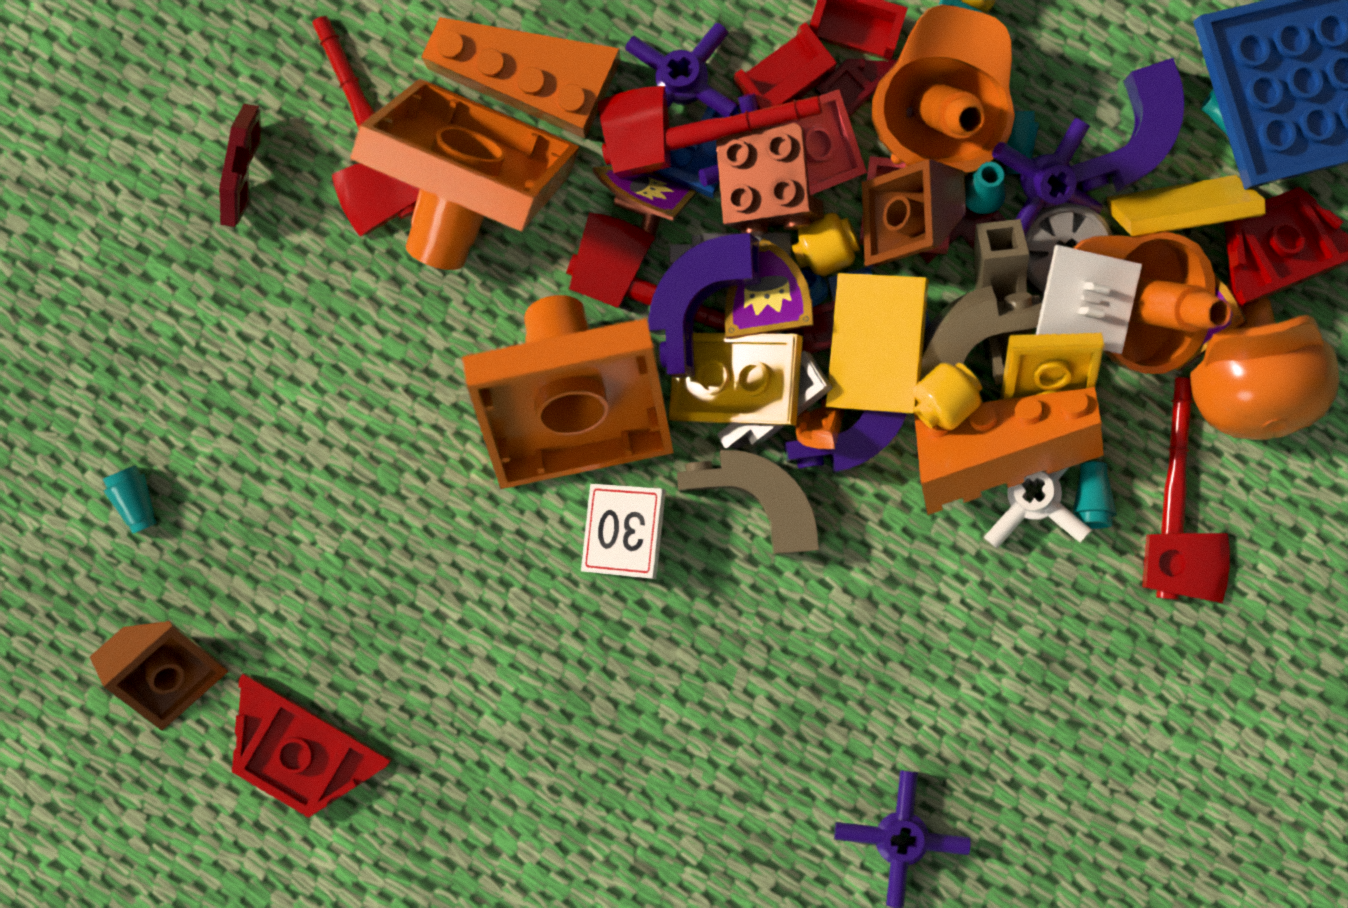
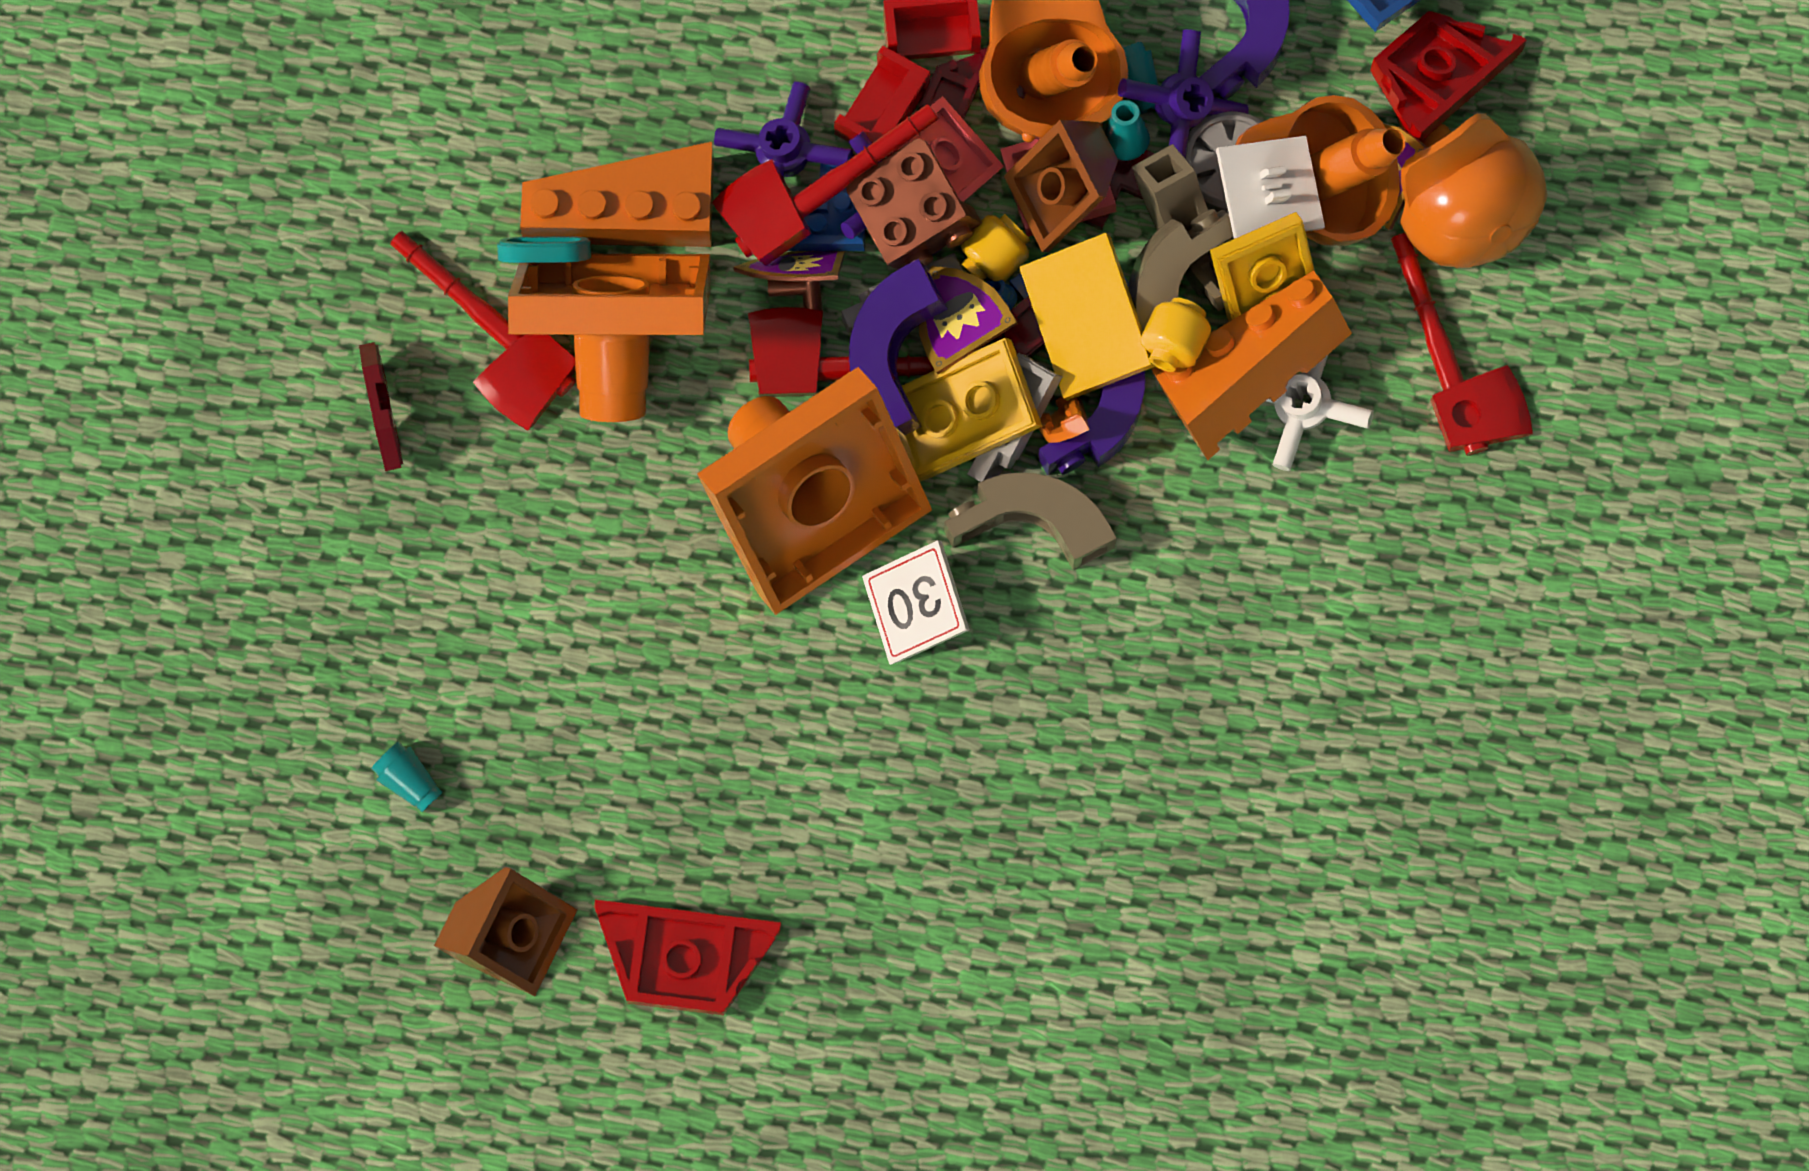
camera: 30 degrees left, 10 degrees down
(435, 84) = (544, 249): none -> teal tile
(892, 825) = (1313, 801): dark purple bar -> none
(1094, 496) = (1362, 381): teal cone -> none
(1185, 206) = (1326, 70): yellow tile -> none

